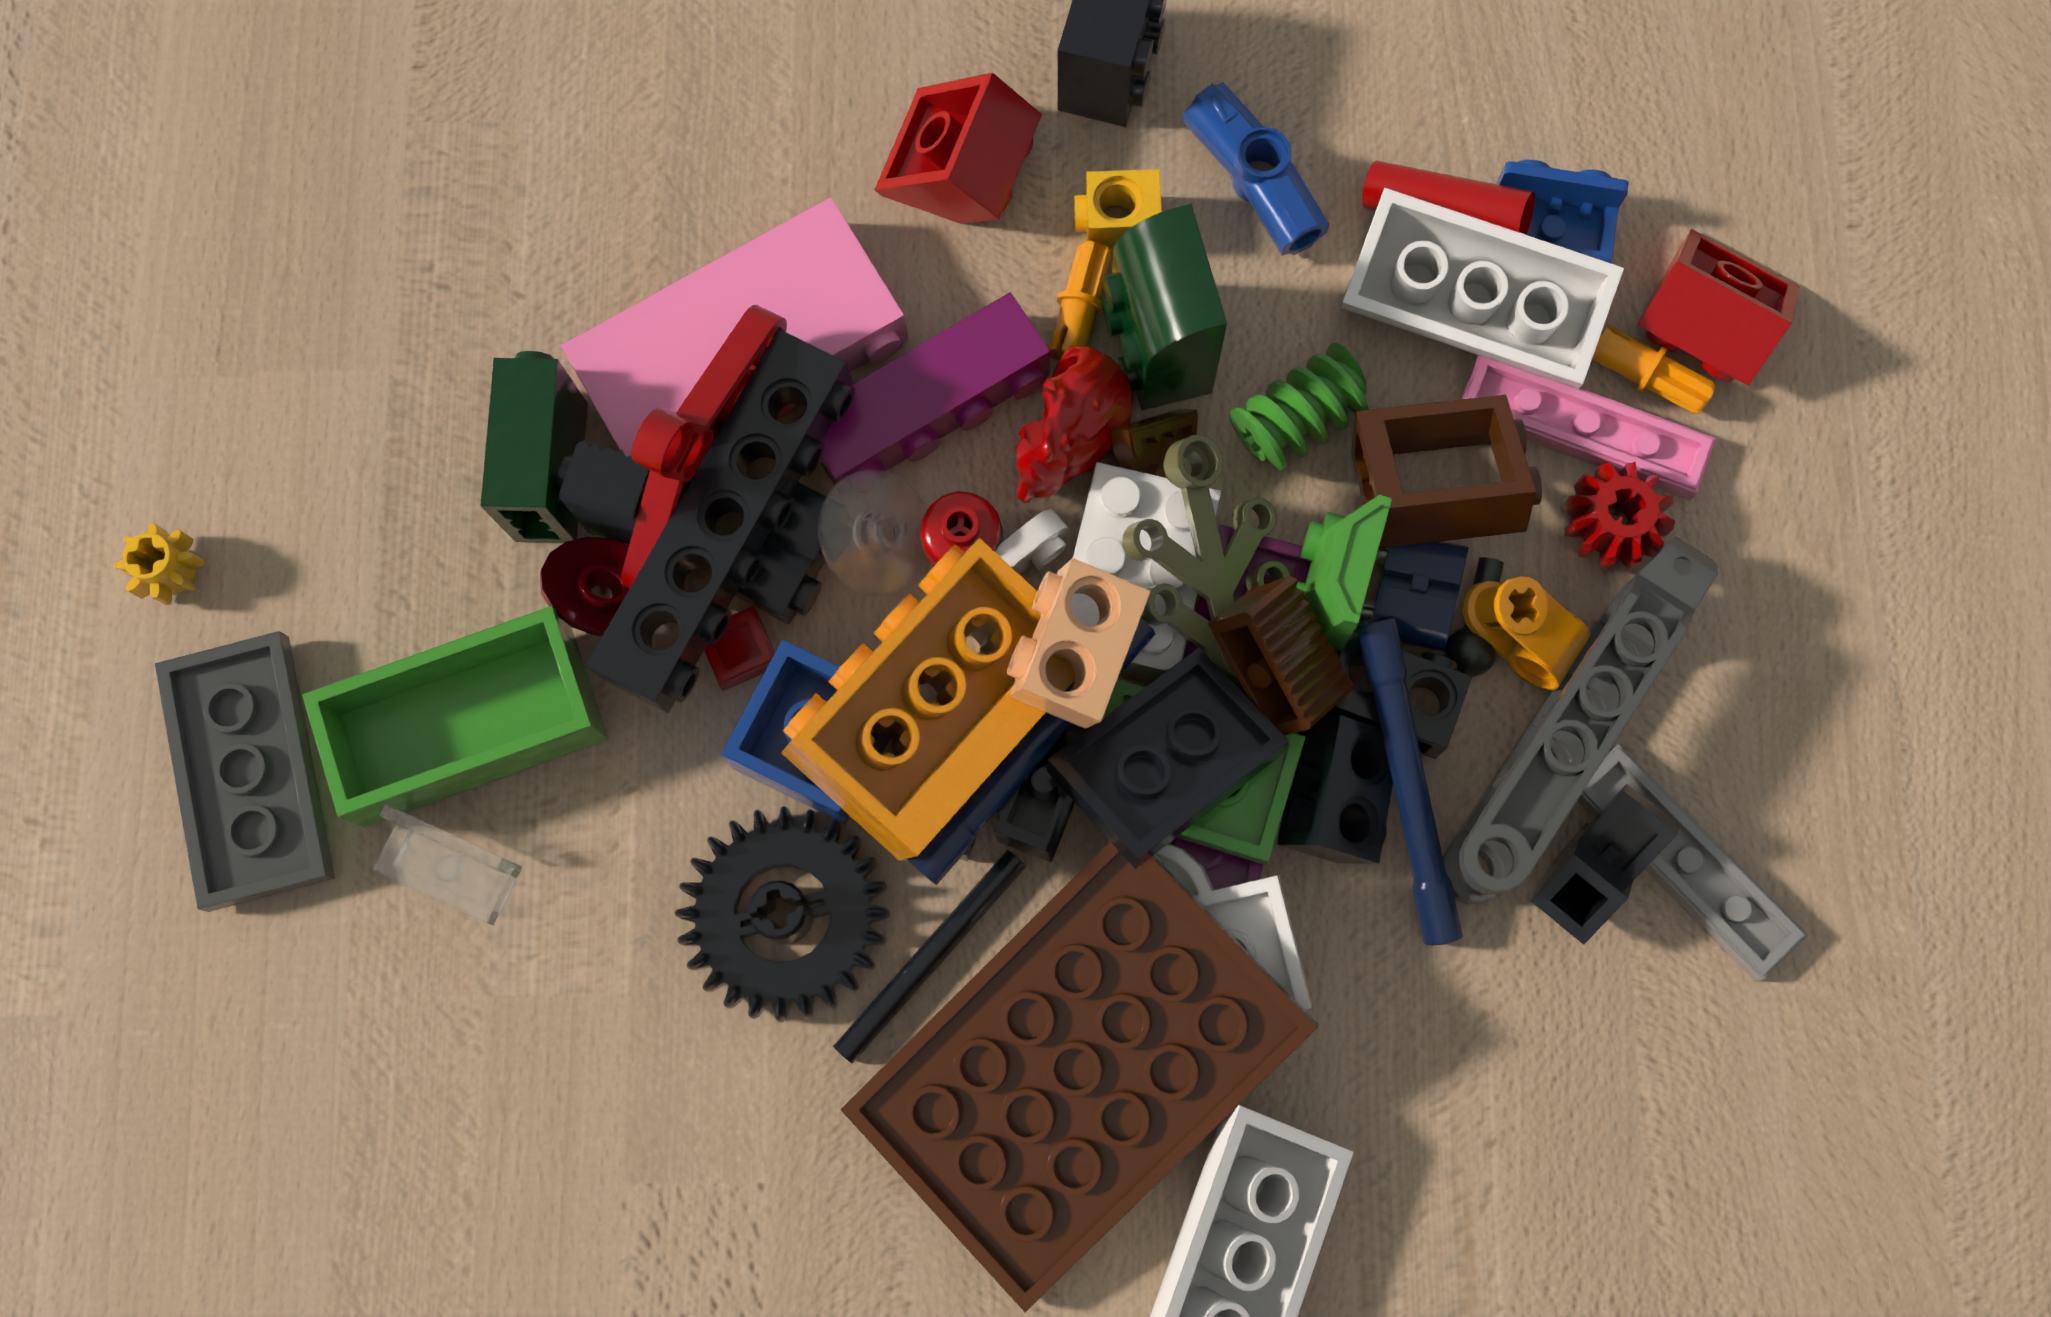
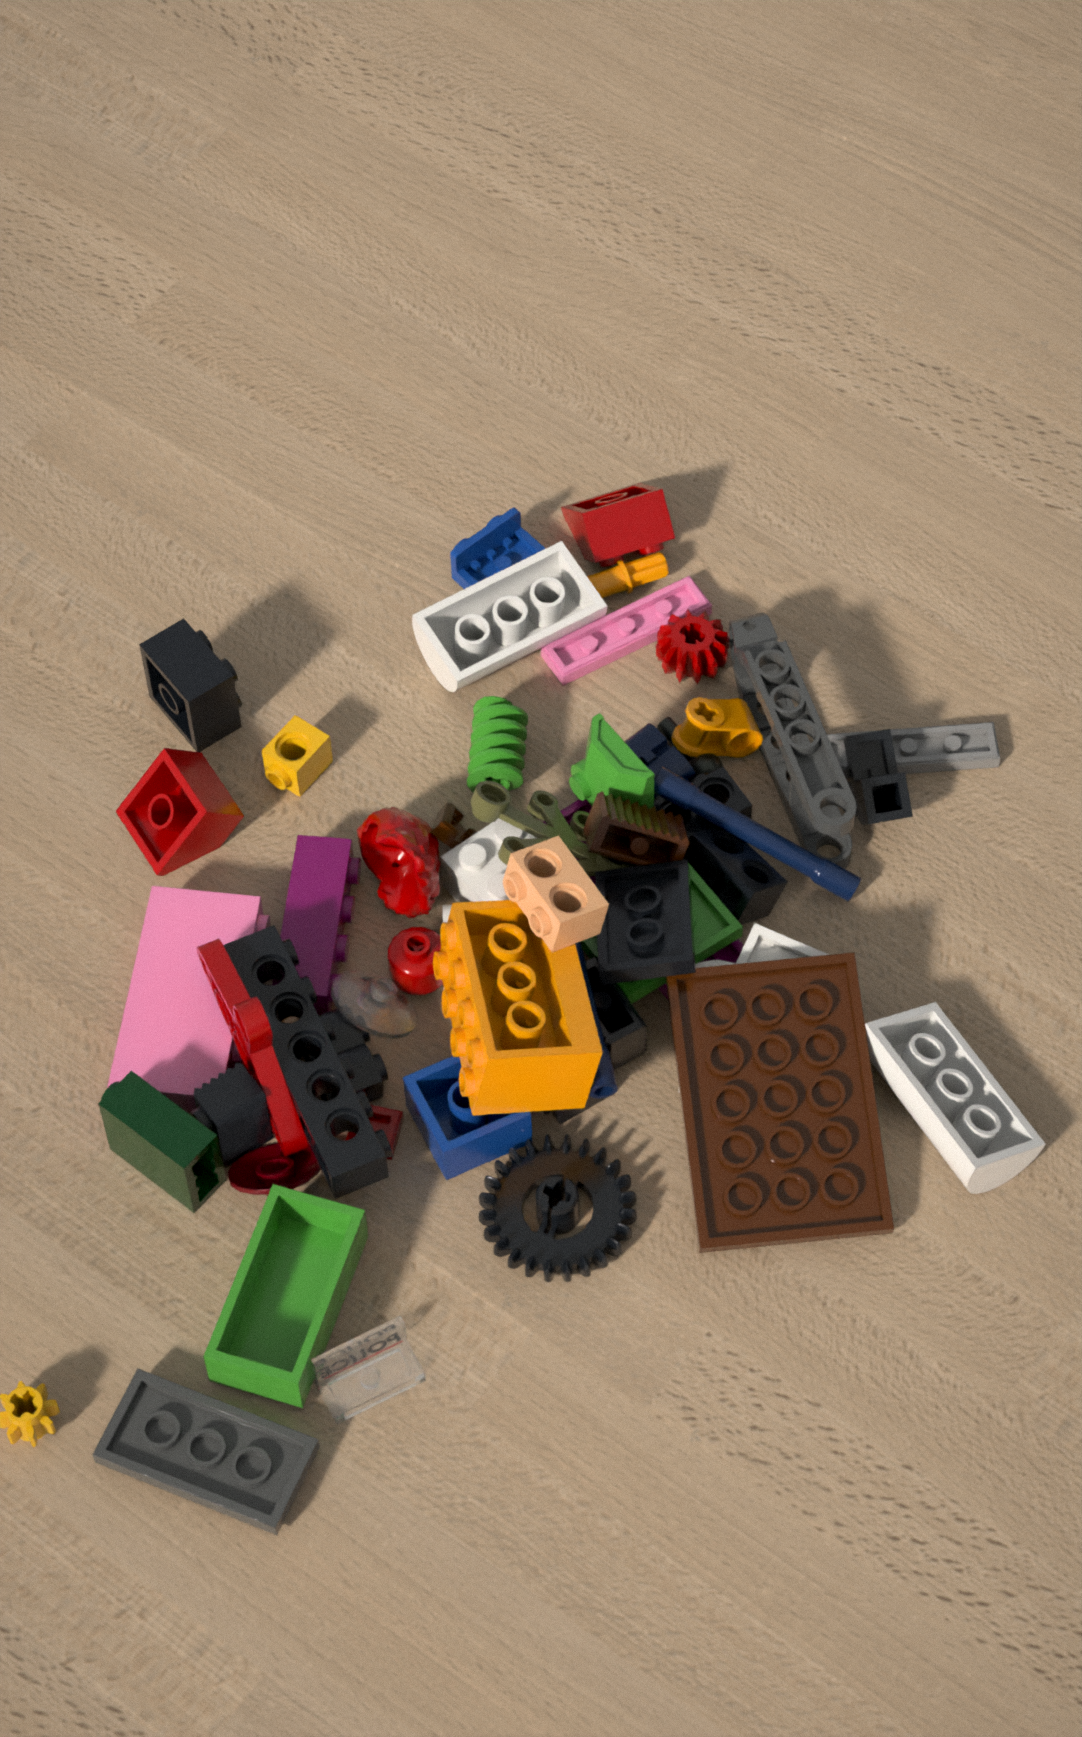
camera: 55 degrees left, 20 degrees down
(929, 956) = (648, 1151): black bar -> none
(1081, 299) = (327, 811): light orange axle -> none
(1165, 309) = (386, 756): dark green brick -> none
(1276, 195) = (352, 674): blue piece -> none
(1451, 511) = (566, 734): reddish brown window -> none
(1479, 199) = (463, 576): red piece -> none

